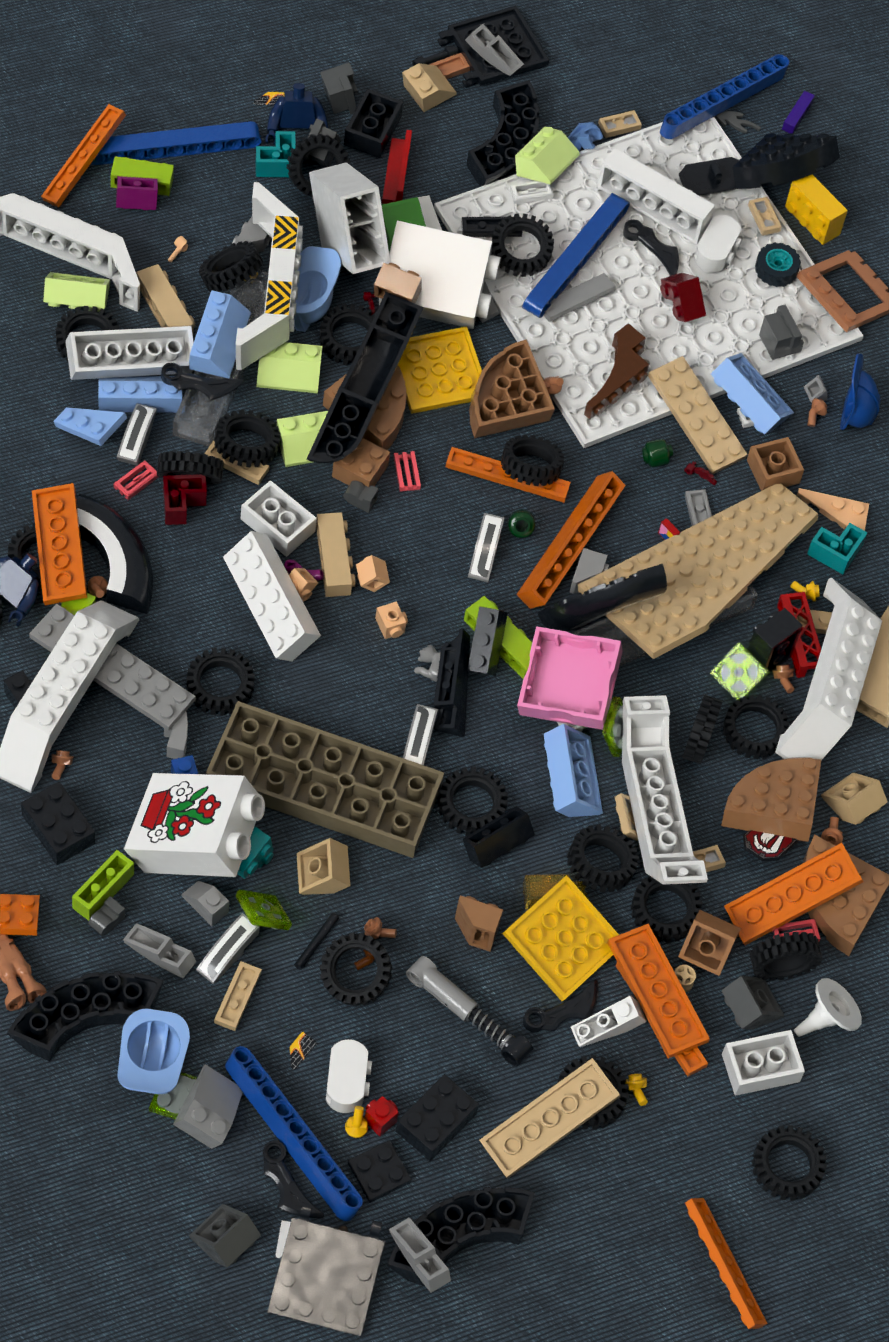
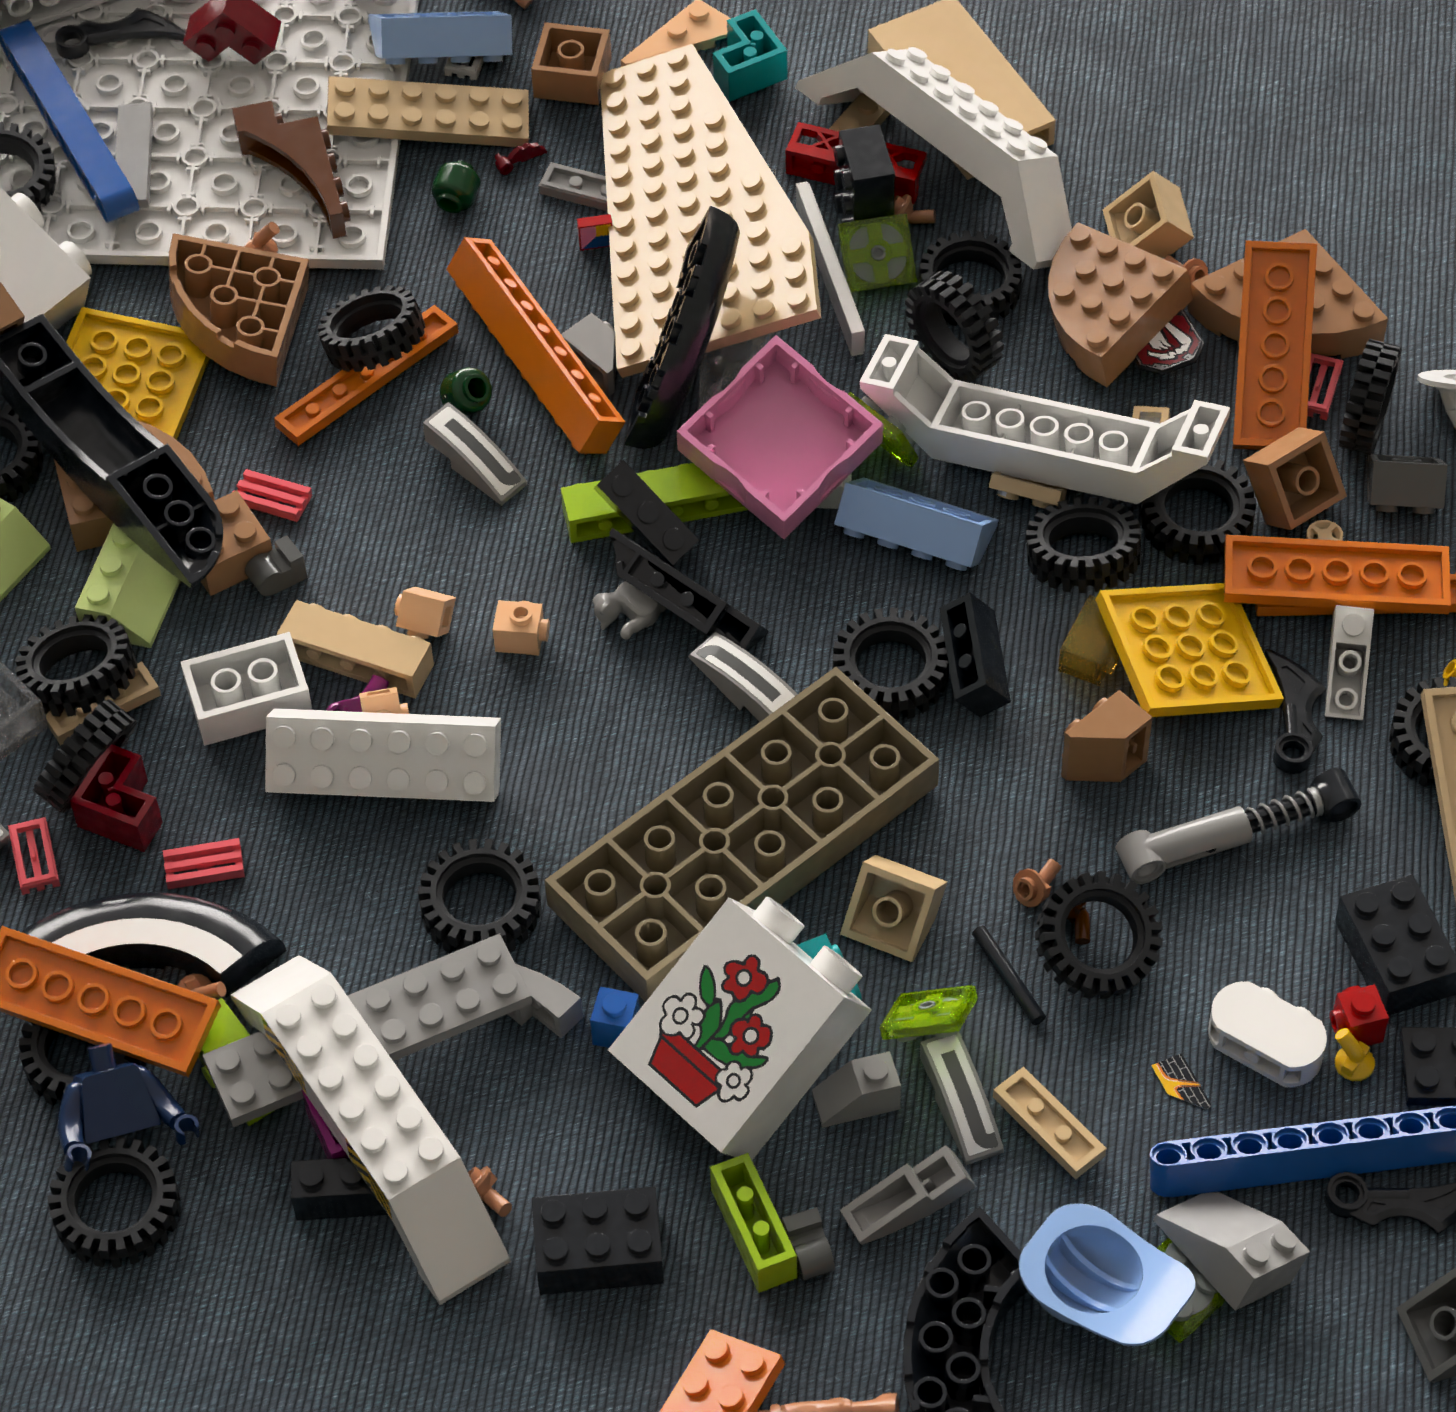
camera: 50 degrees left, 5 degrees down
(163, 541) = (203, 858): none -> coral tile
(715, 656) = (831, 270): none -> white tile
(811, 590) = (791, 117): yellow plate -> none

